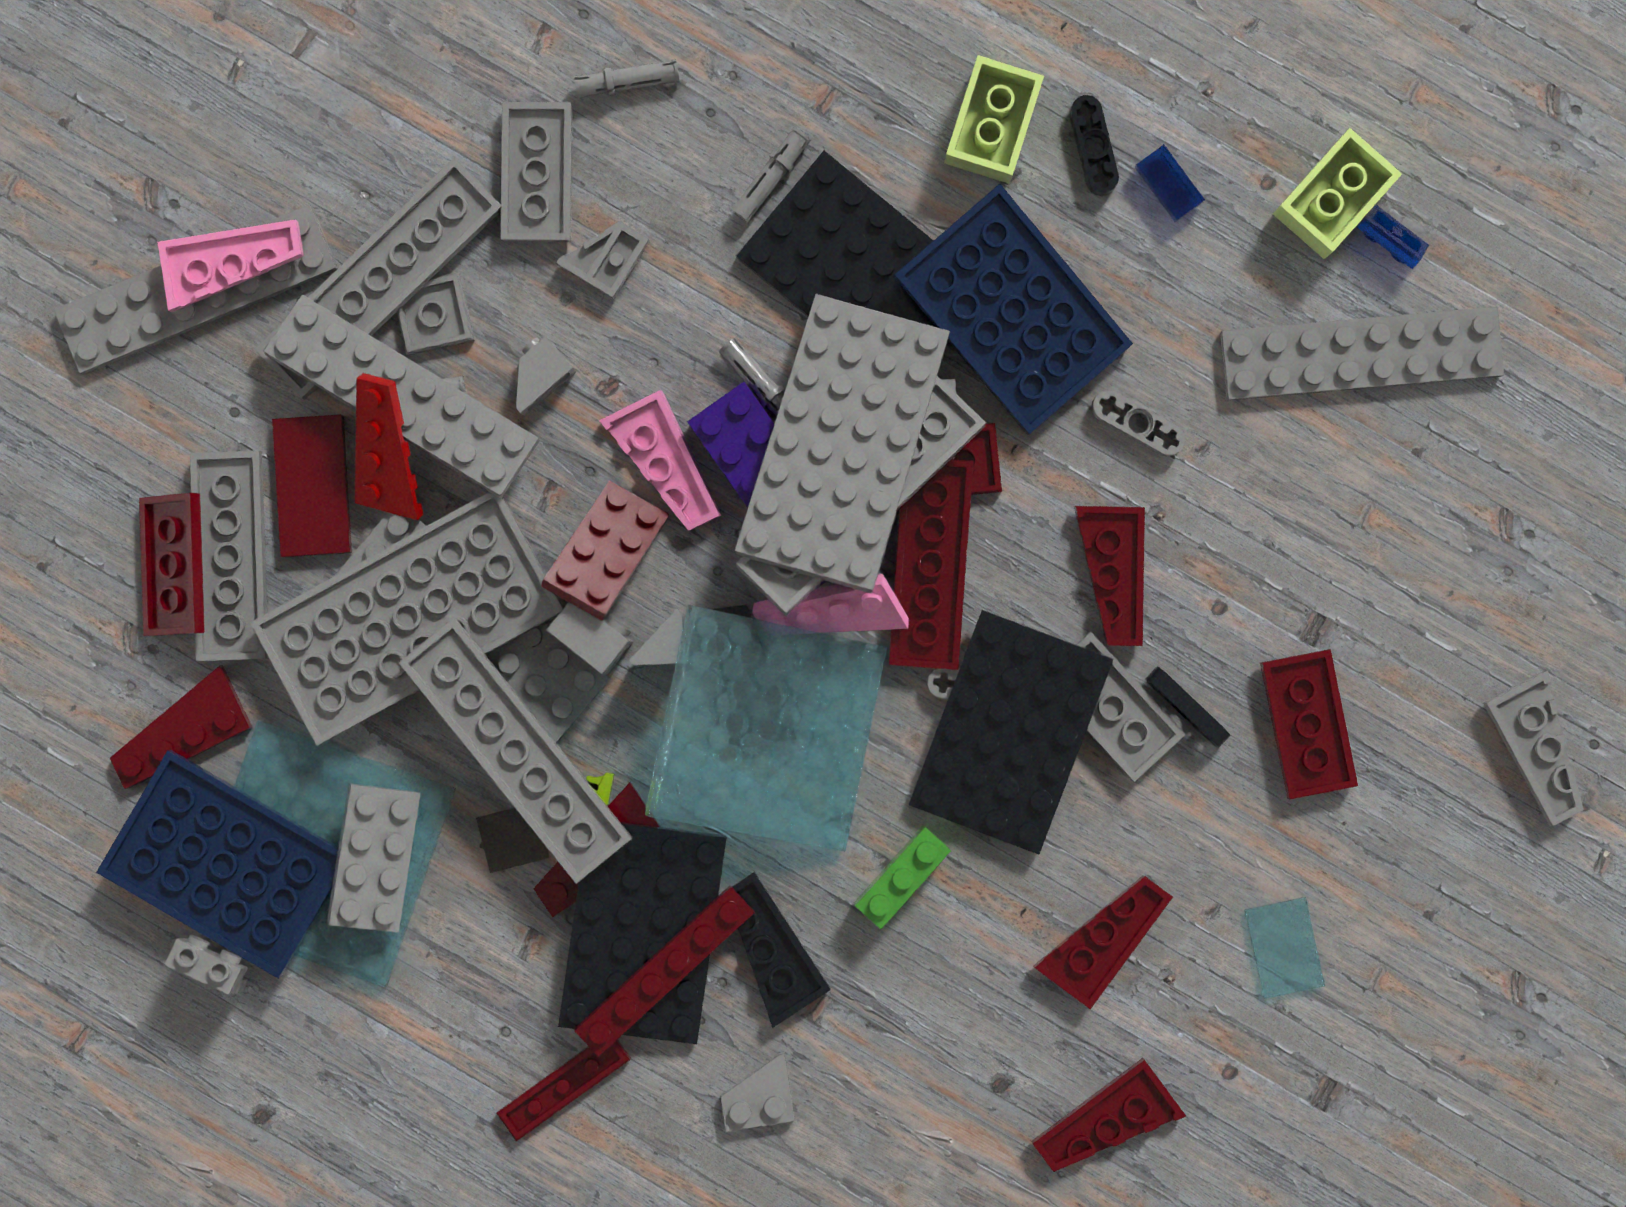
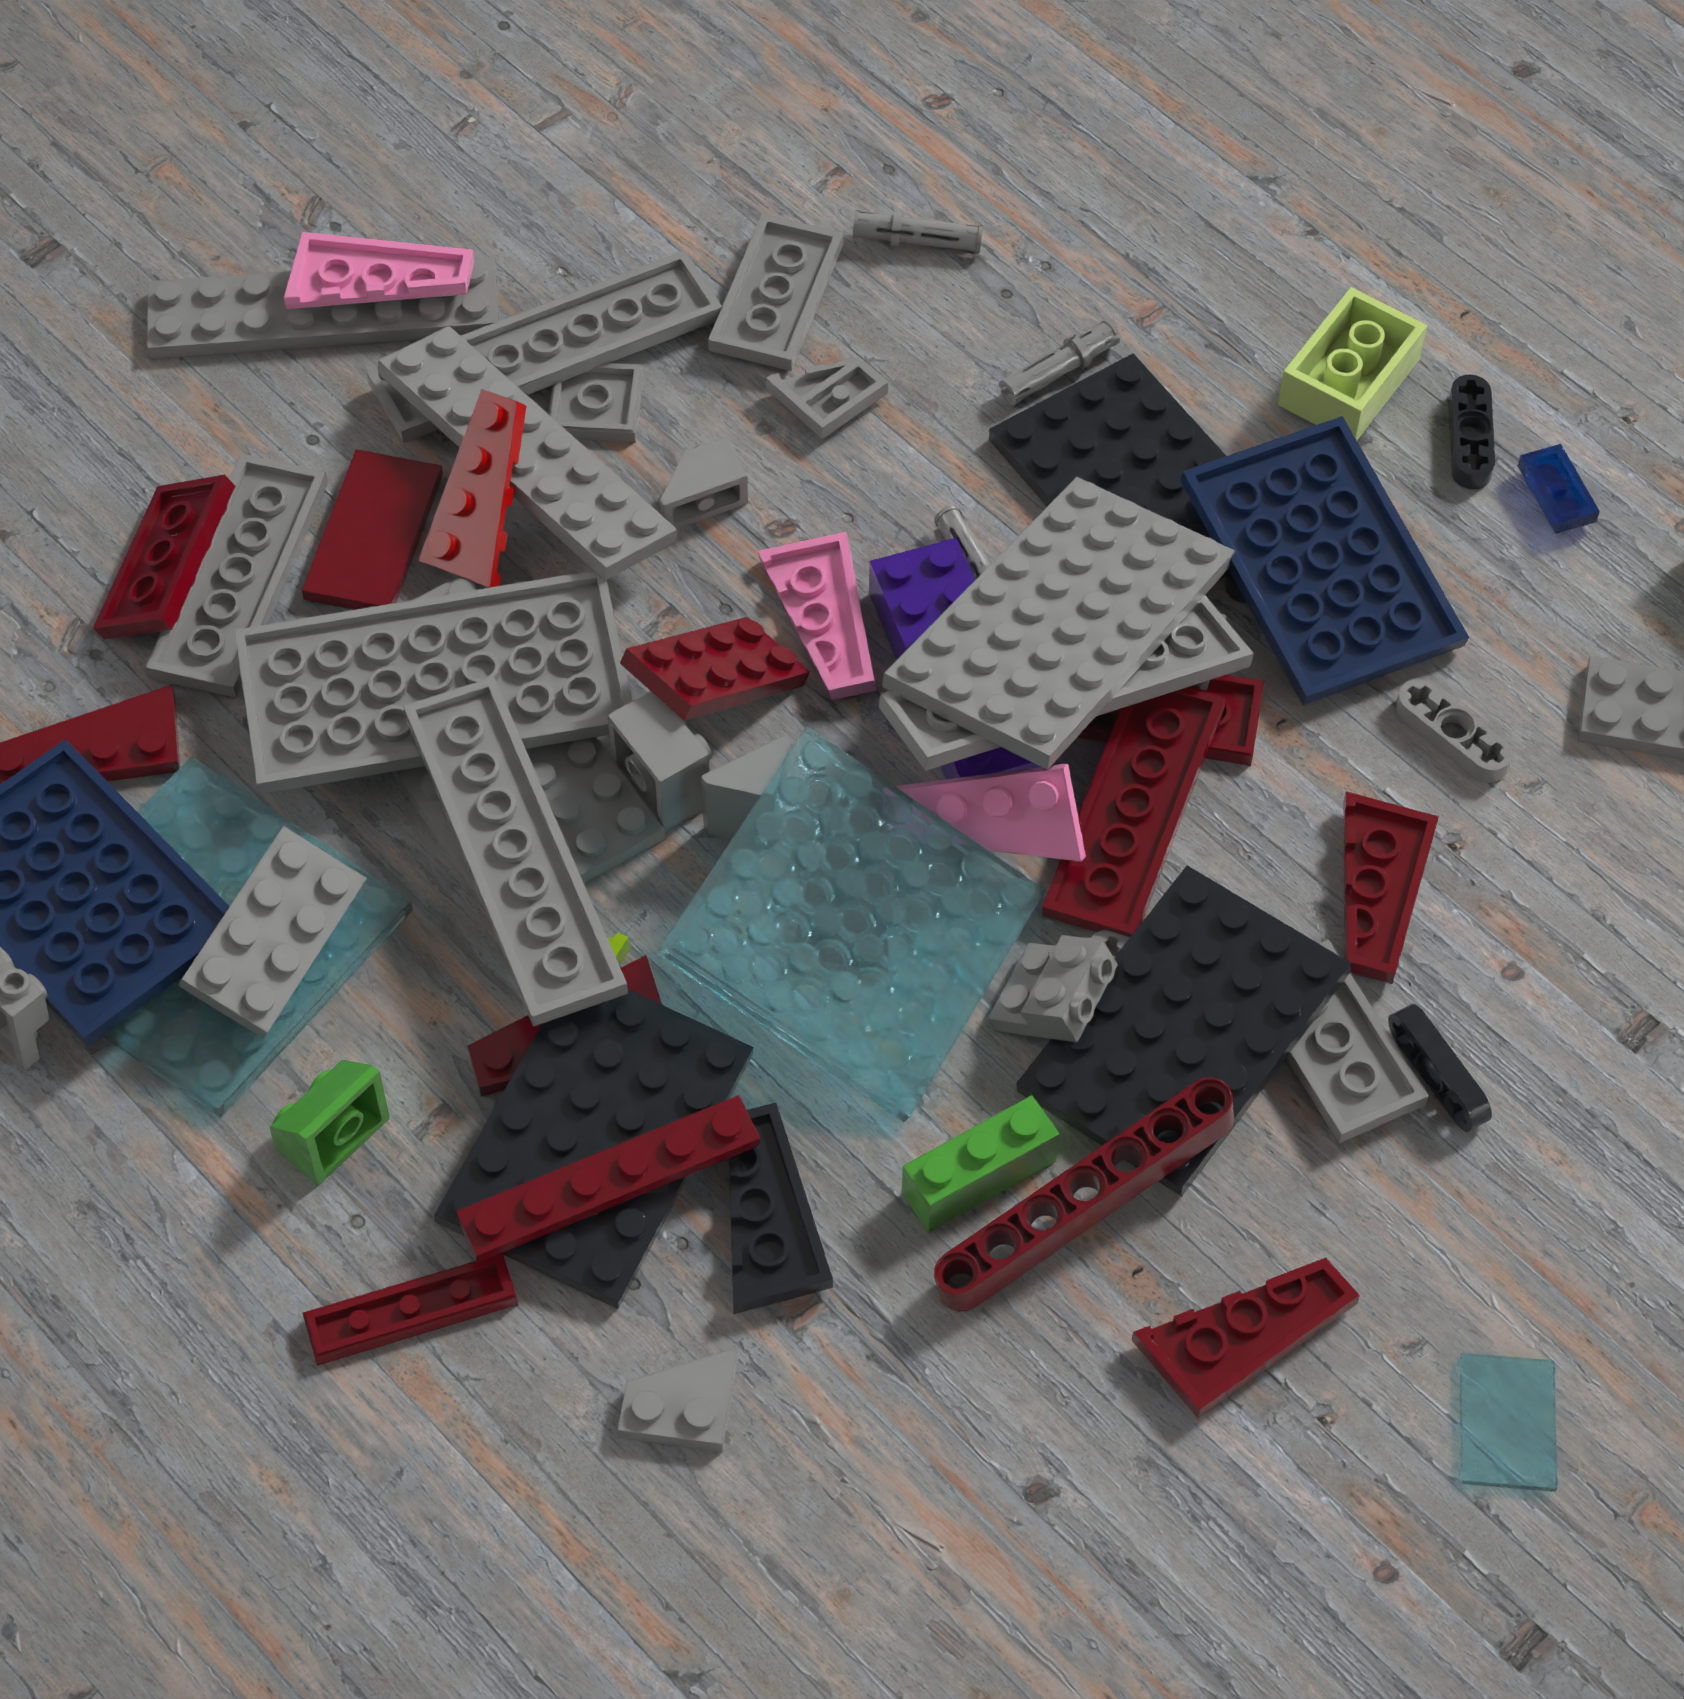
camera: 15 degrees right, 30 degrees down
(461, 978) = (331, 1119): none -> bright green slope
(509, 840) = (463, 985): clear smoke piece -> none
(915, 732) = (1054, 989): none -> light grey plate
(975, 903) = (1078, 1216): none -> dark red beam
(1118, 1111) = (1193, 1572): dark red wing -> none
(1309, 724) = (1607, 1136): dark red plate -> none

